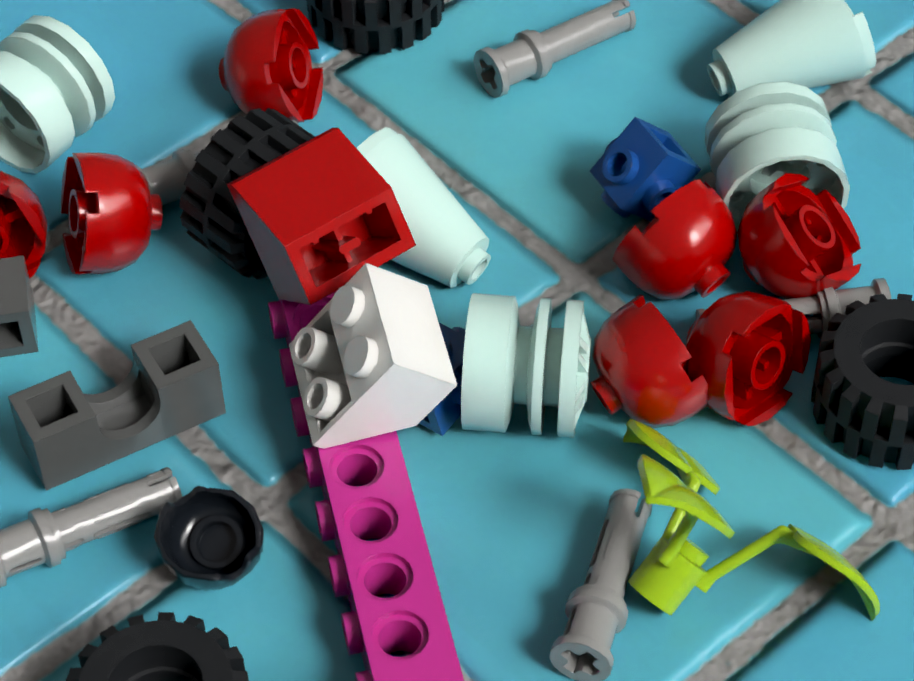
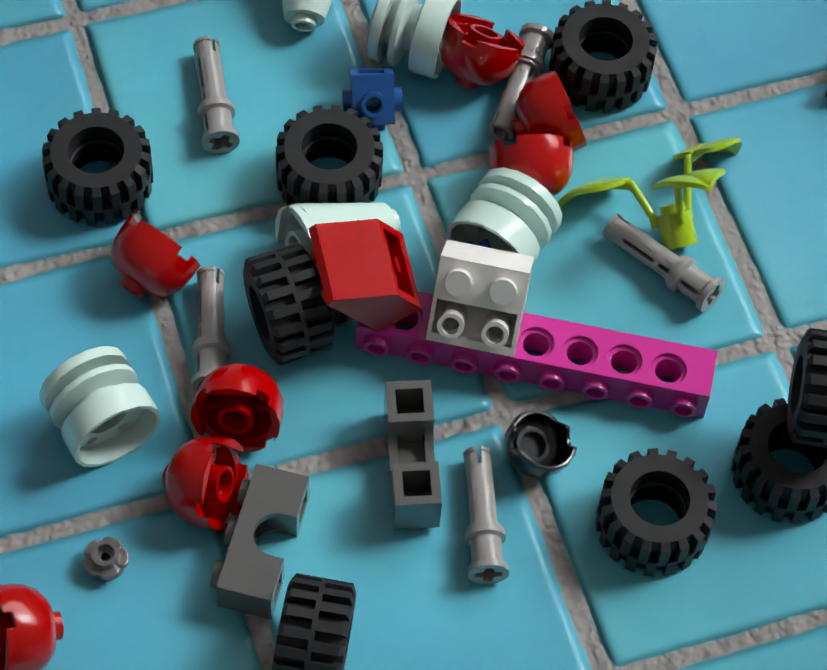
camera: 70 degrees left, 10 degrees up
(519, 168) = (329, 135): none -> black tyre
(681, 246) = (444, 107): red cylinder -> none

